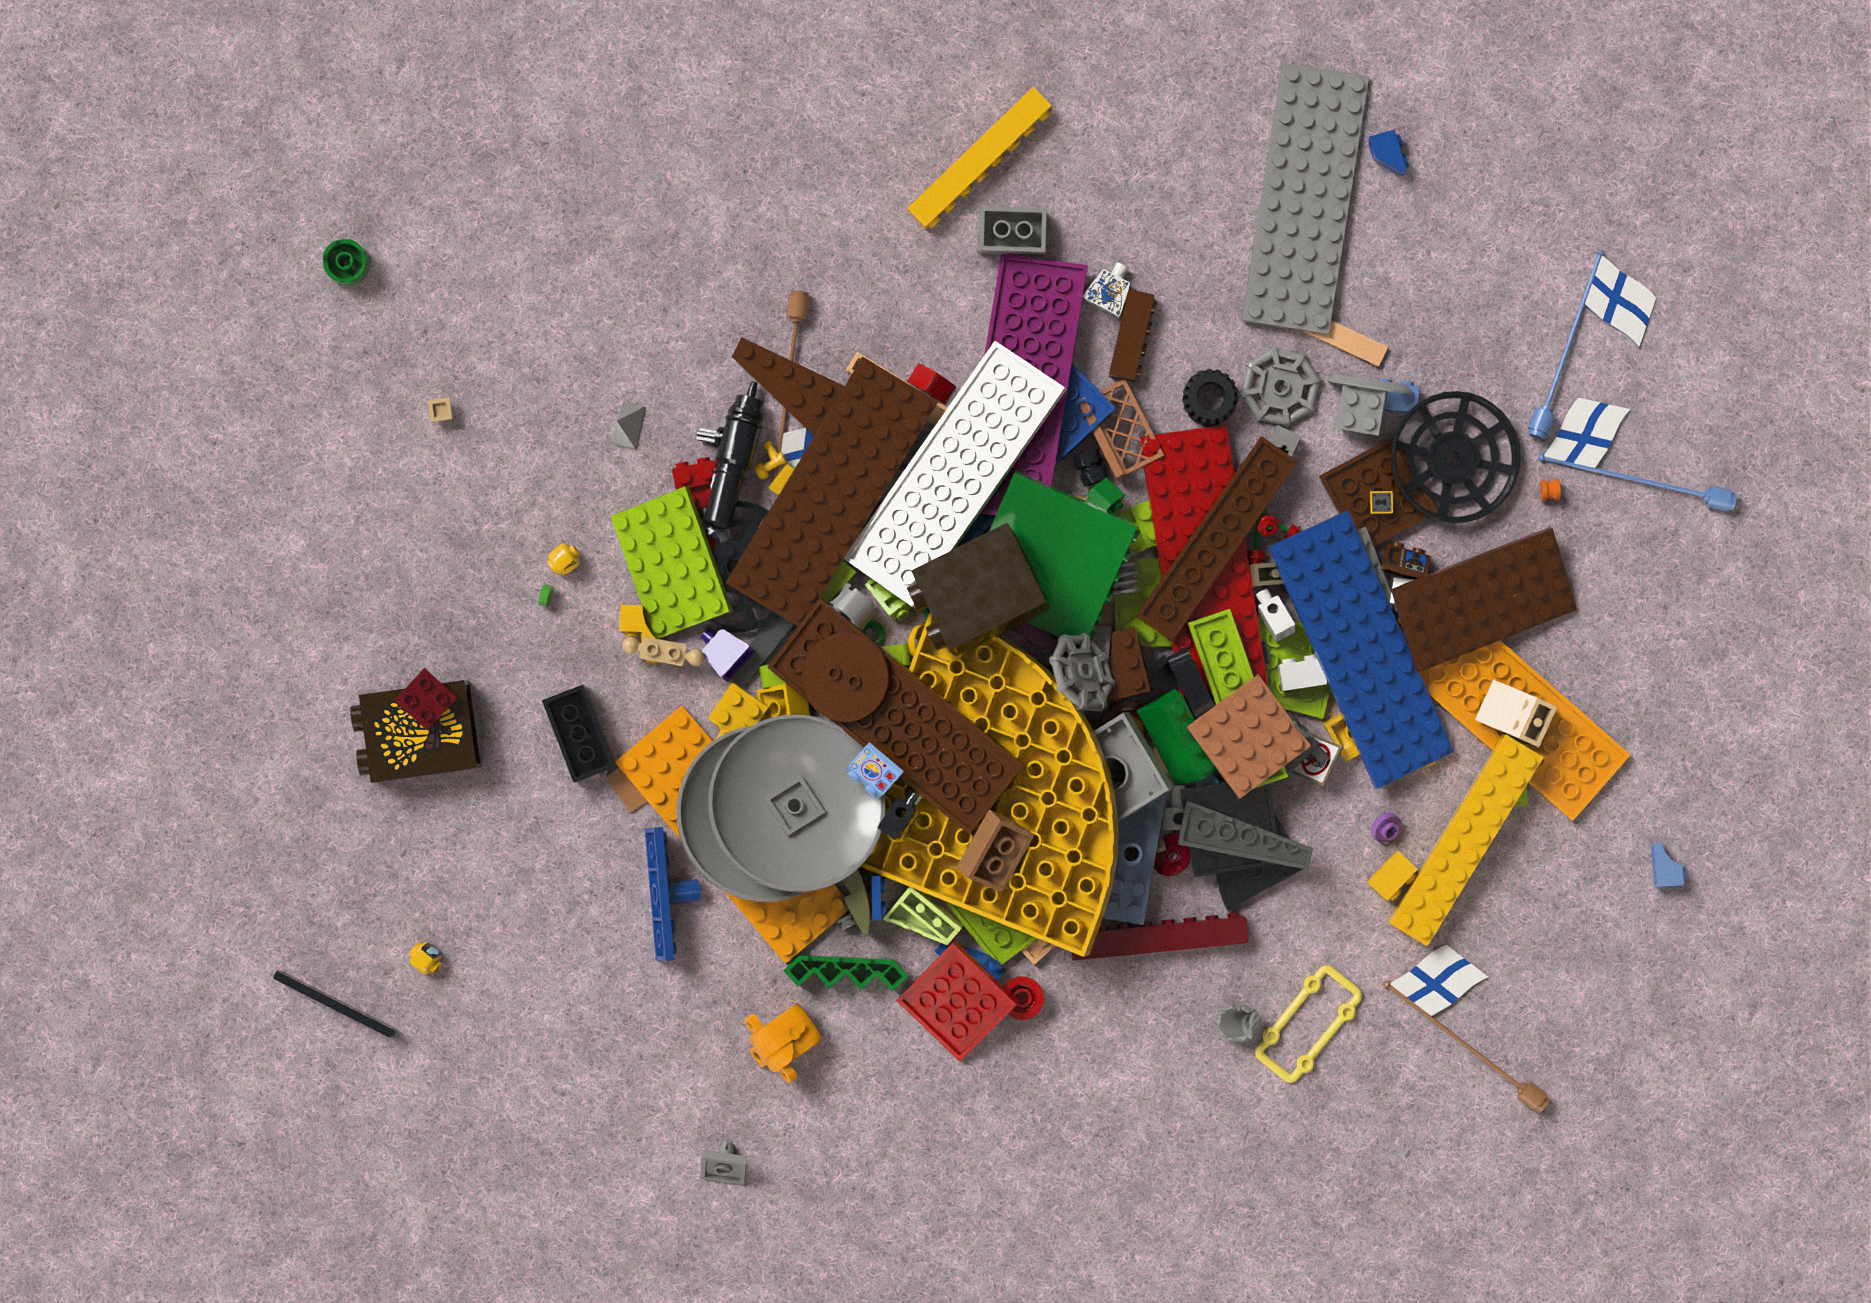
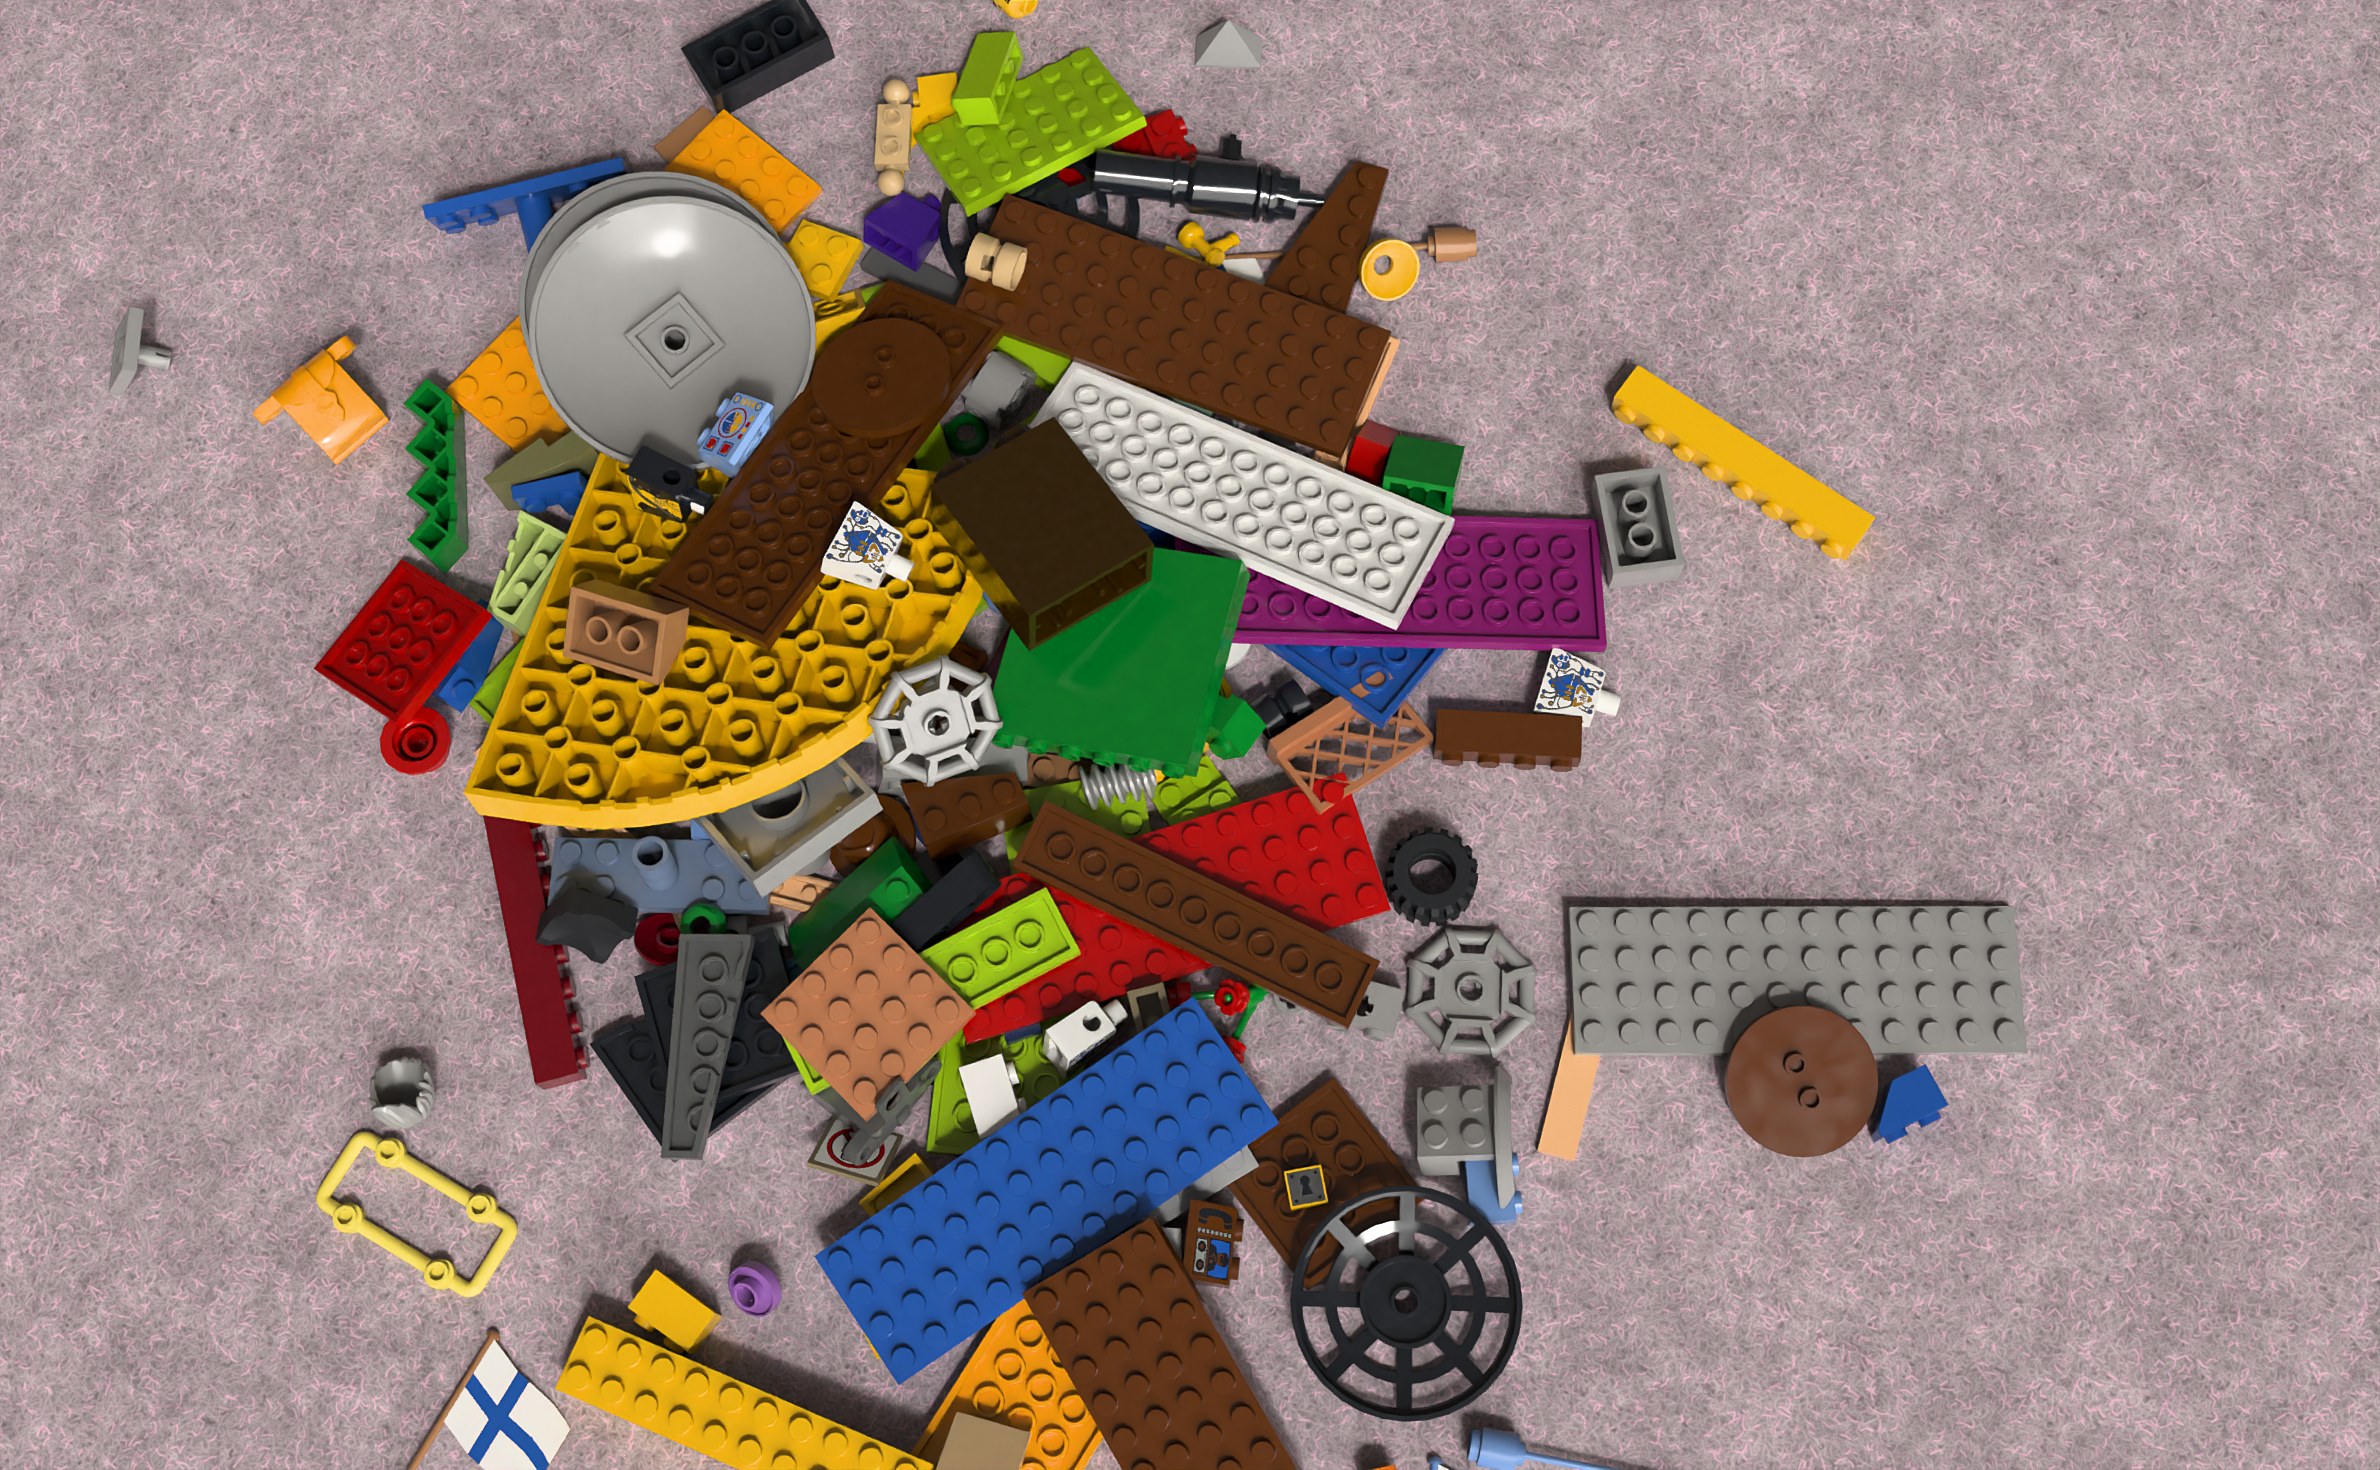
camera: 85 degrees right, 15 degrees down
(629, 584) = (988, 78): none -> lime brick
(780, 594) = (1007, 265): none -> tan wheel
(814, 347) = (1397, 278): none -> yellow piece
(956, 353) = (1424, 472): none -> green brick
(971, 697) = (866, 550): none -> white torso
(1158, 900) = (587, 923): none -> black brick
(1162, 829) = (708, 910): none -> green piece
(1365, 208) = (1801, 1081): none -> reddish brown plate

